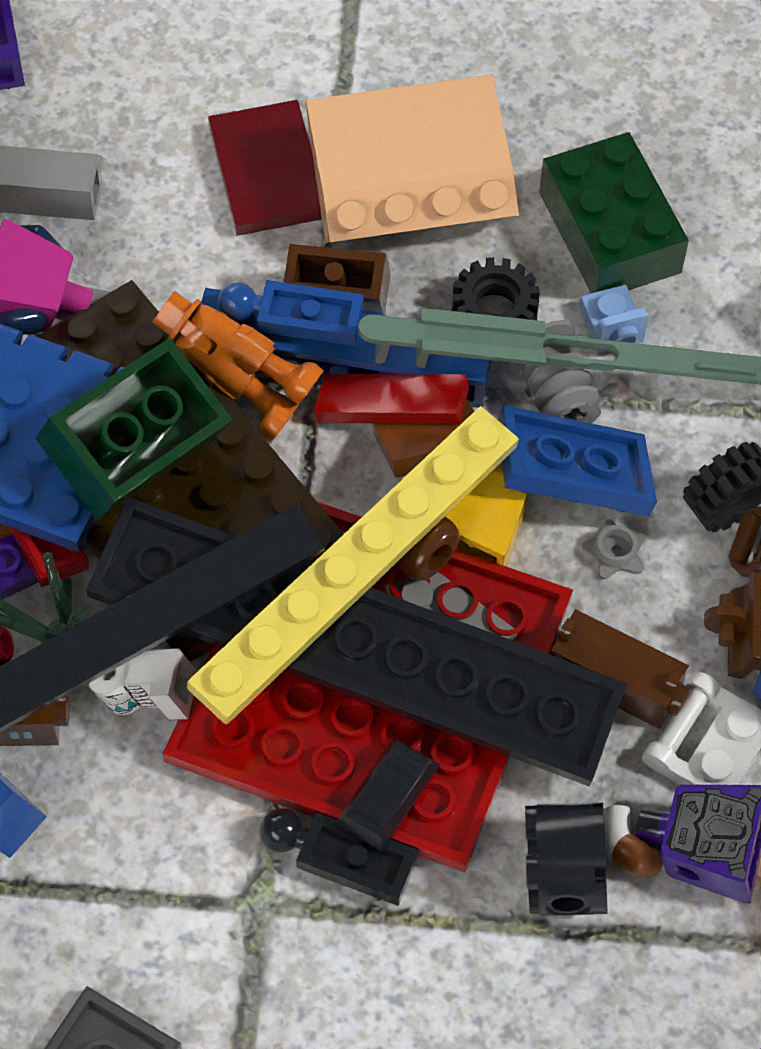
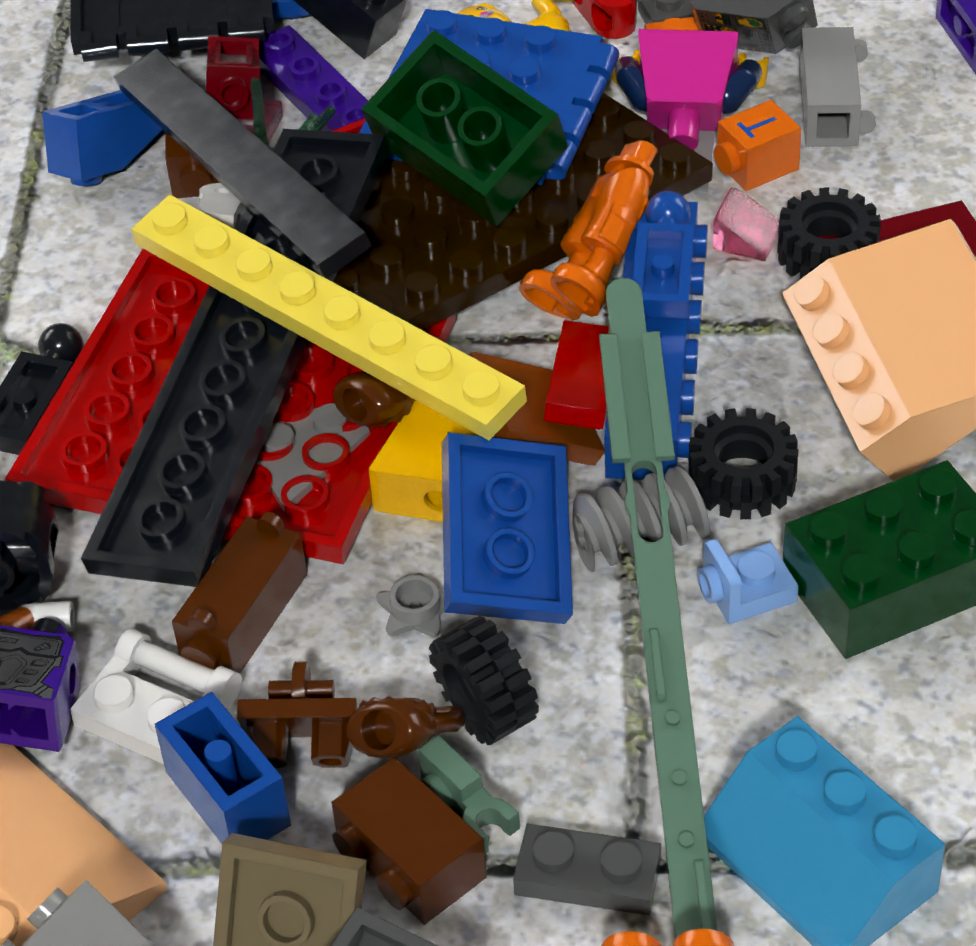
camera: 90 degrees right, 15 degrees down
(111, 244) = (758, 145): none -> orange brick
(206, 270) = (744, 227): none -> clear pink slope
(251, 183) = (824, 216): none -> black tyre
(341, 271) = (732, 310): reddish brown brick -> none
(387, 794) = (86, 406): black tile -> none

